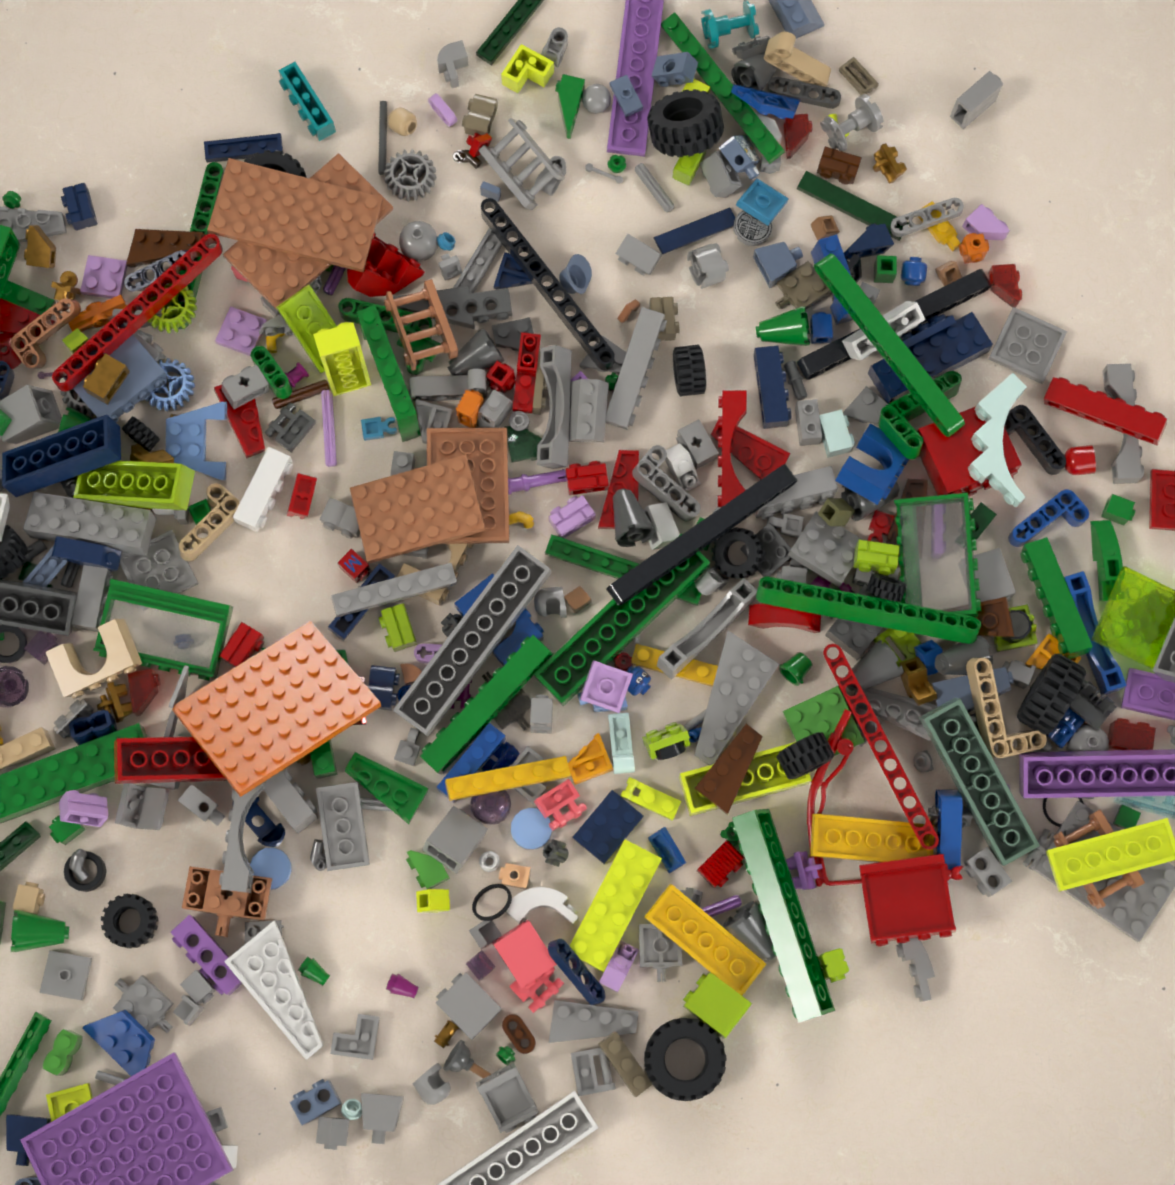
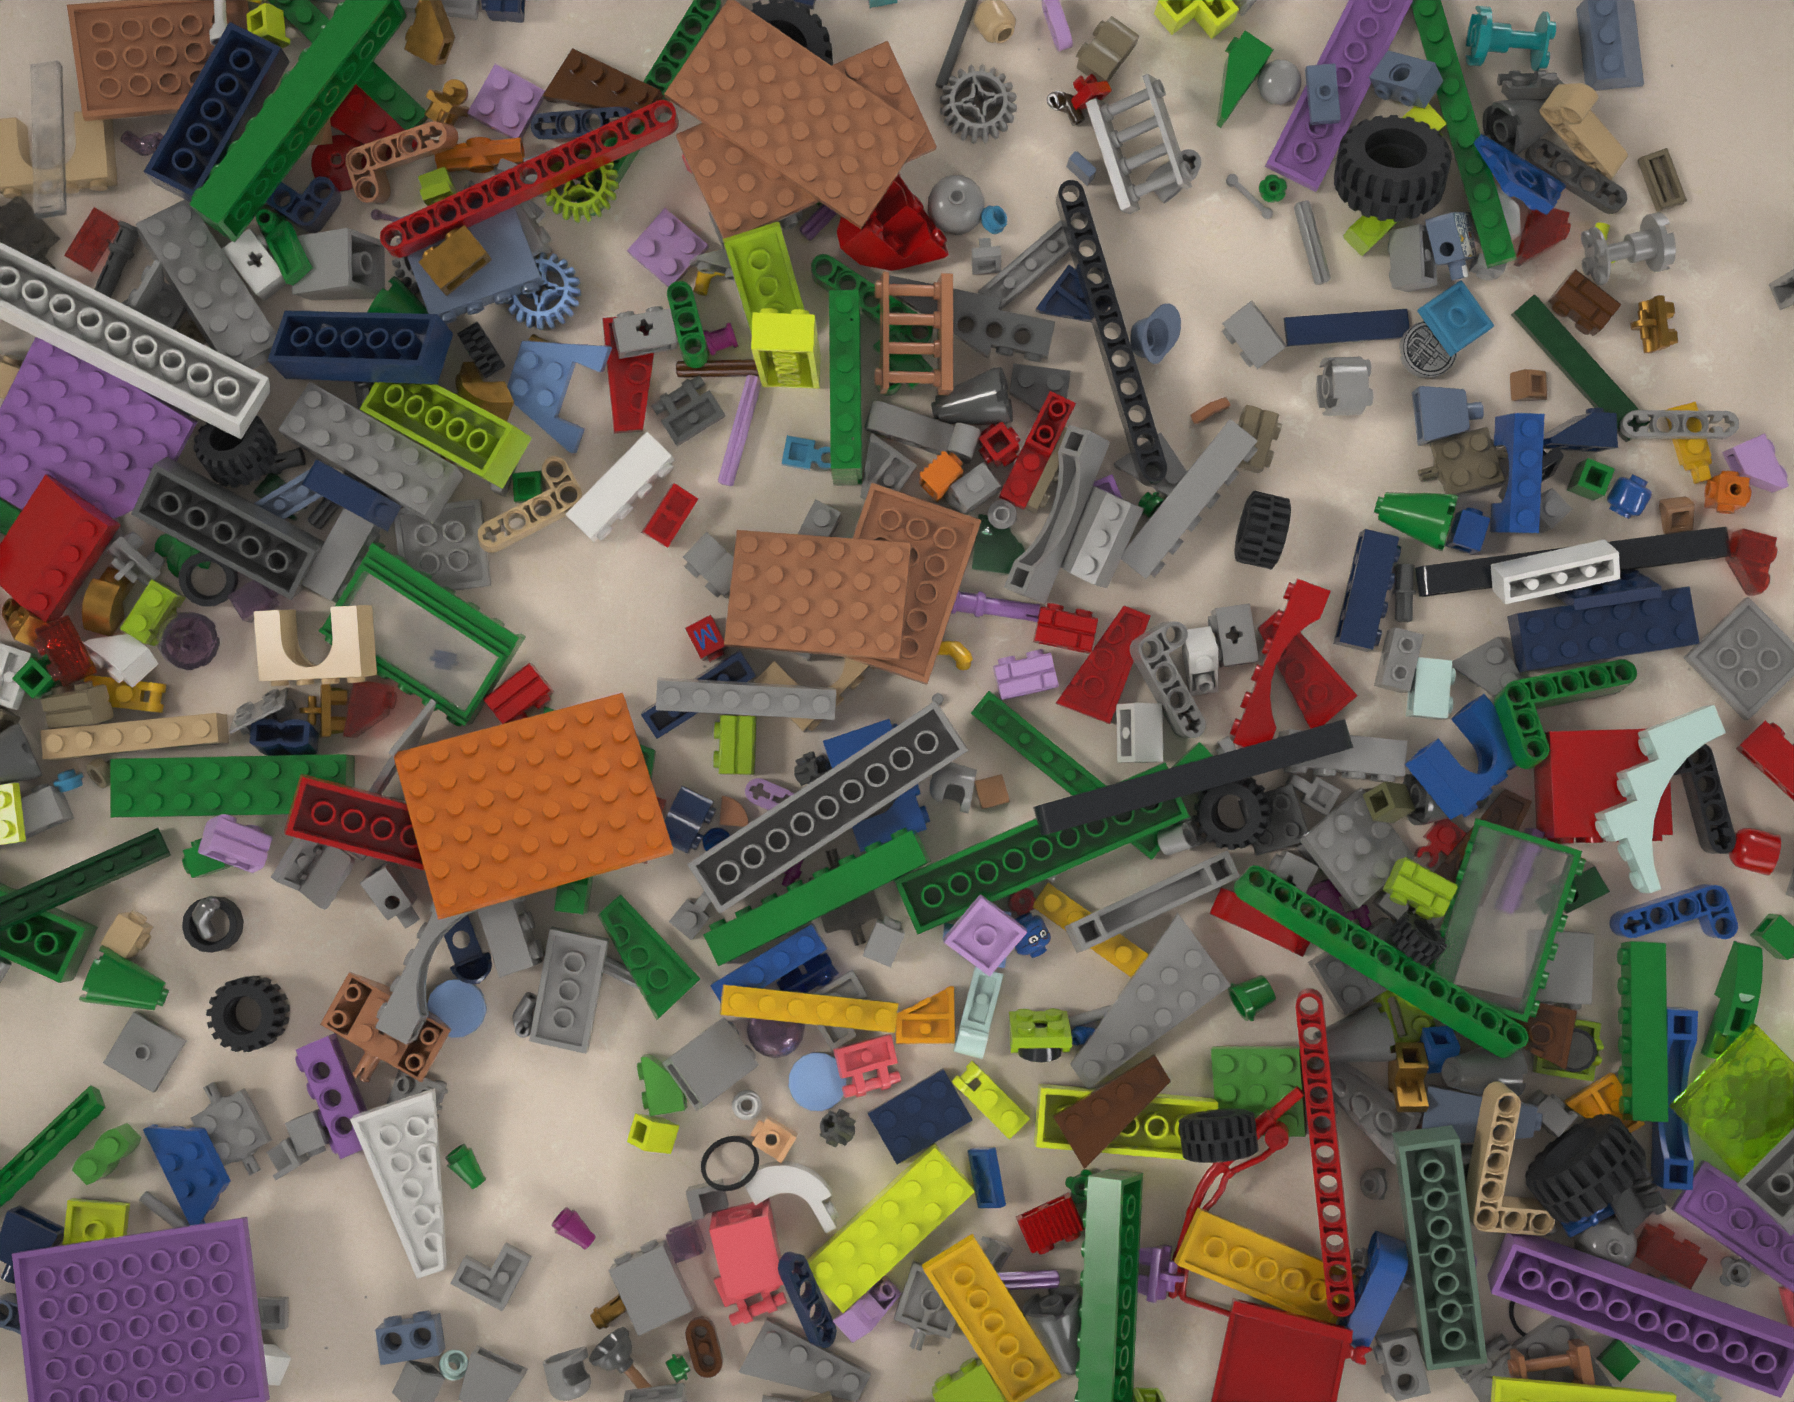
camera: 20 degrees right, 10 degrees up
(630, 520) = (1102, 712): dark grey cone -> none
(889, 345) = (1555, 600): green beam -> none

